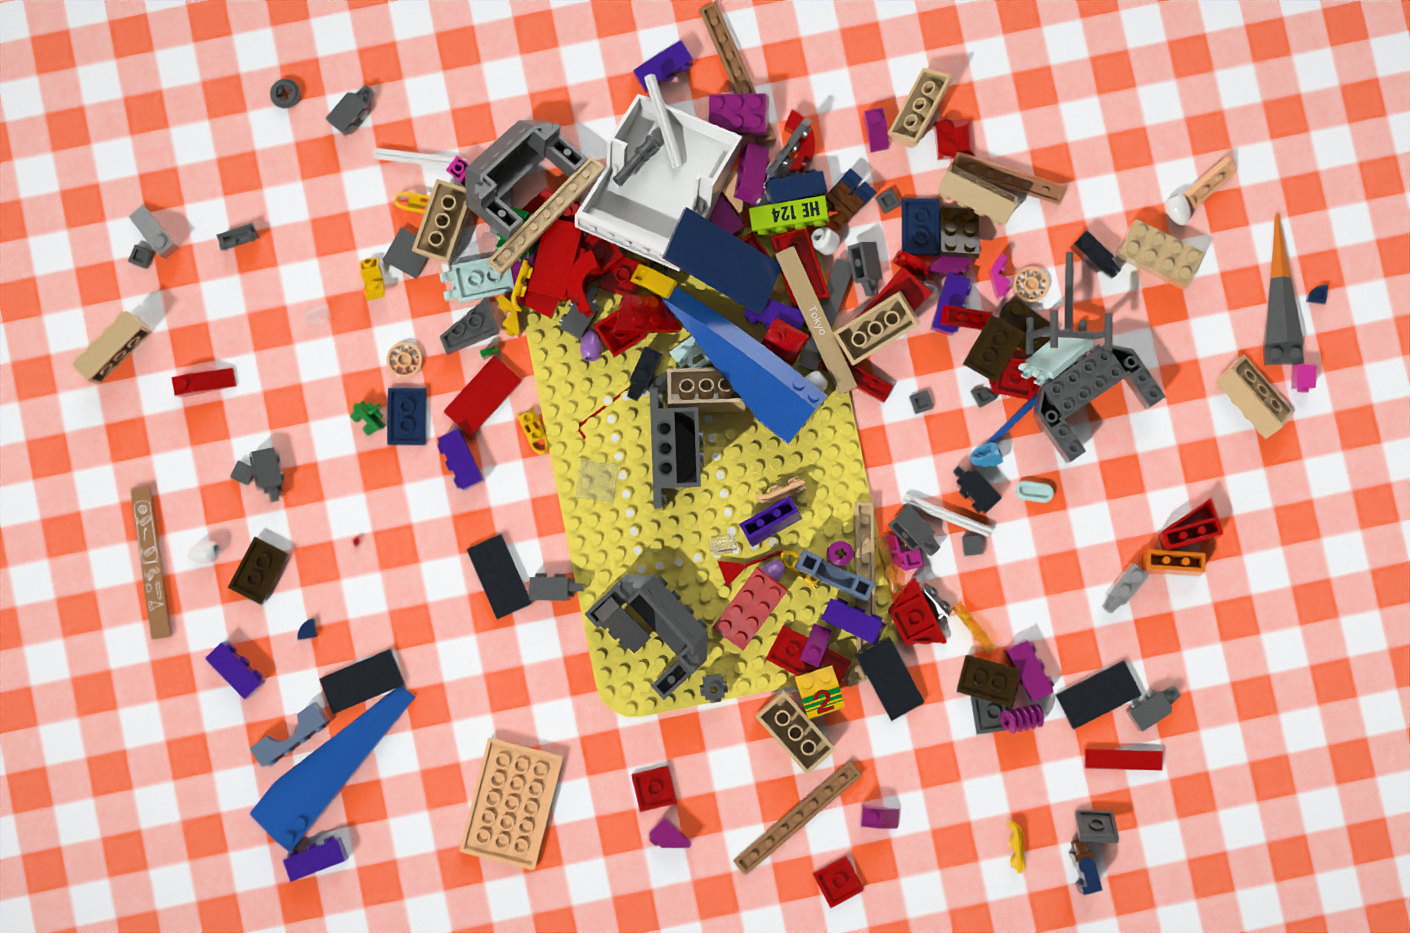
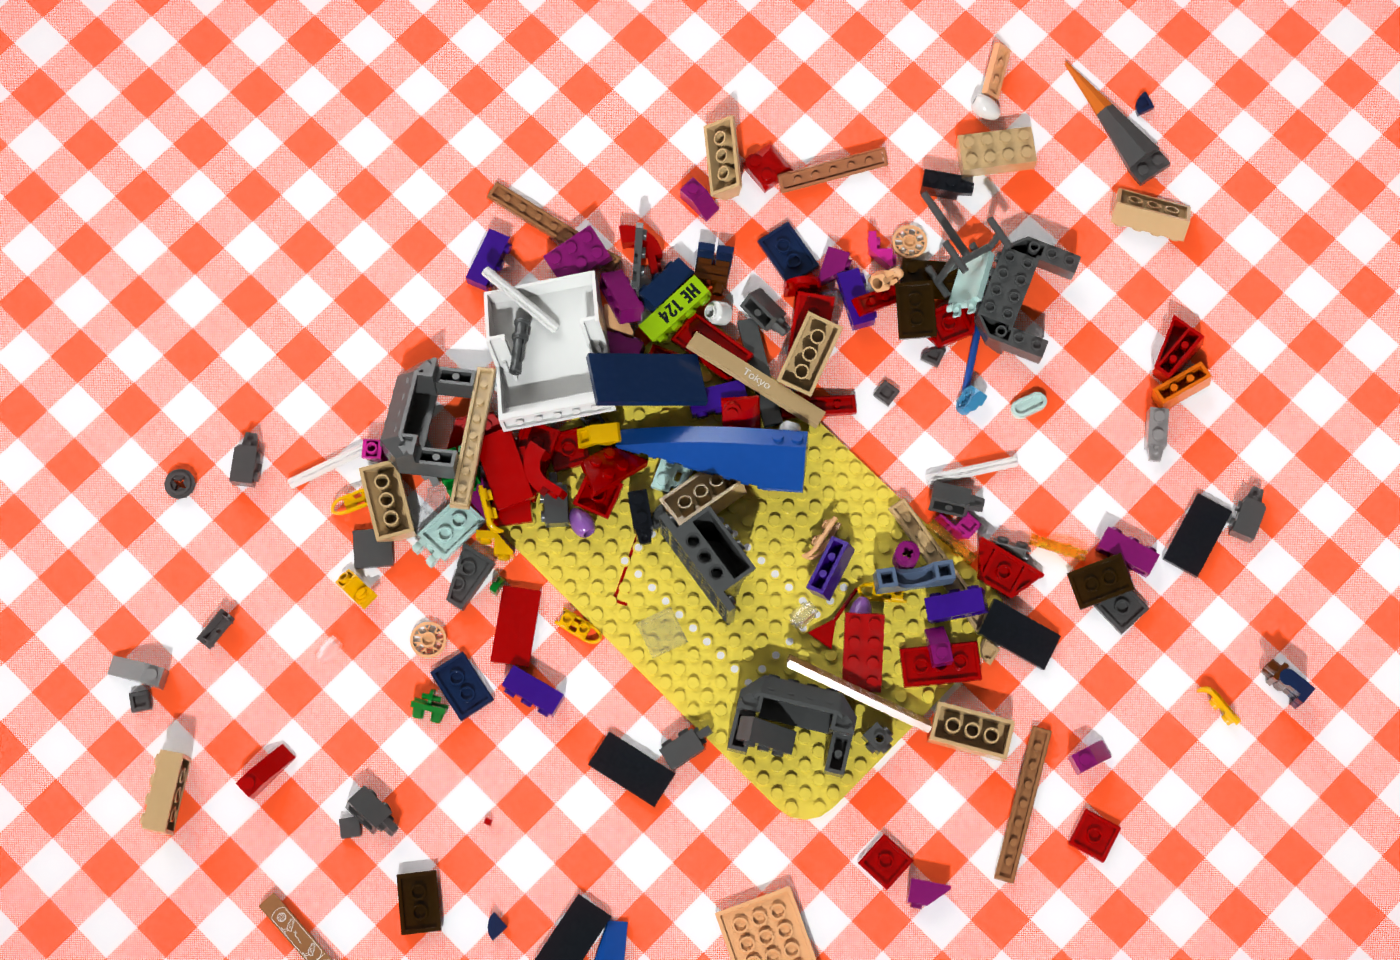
camera: 35 degrees left, 10 degrees down
(204, 552) = (360, 918): white animal -> none
(722, 640) = (859, 693): none -> tile
(820, 692) = (969, 681): yellow slope -> none
(887, 201) = (747, 250): dark grey tile -> none
(959, 233) = (823, 236): dark brown plate -> none
(972, 545) = (1009, 481): dark grey tile -> none
(976, 489) = (981, 433): black hinge -> none
(977, 194) = (817, 196): tan brick -> none
(984, 303) = (882, 279): none -> light nougat animal
(1022, 718) = (1150, 594): magenta piece -> none
(1096, 826) = (1272, 642): dark grey tile -> none
(1123, 759) = (1255, 574): red tile -> none
(1303, 377) = (1178, 174): dark pink brick -> none

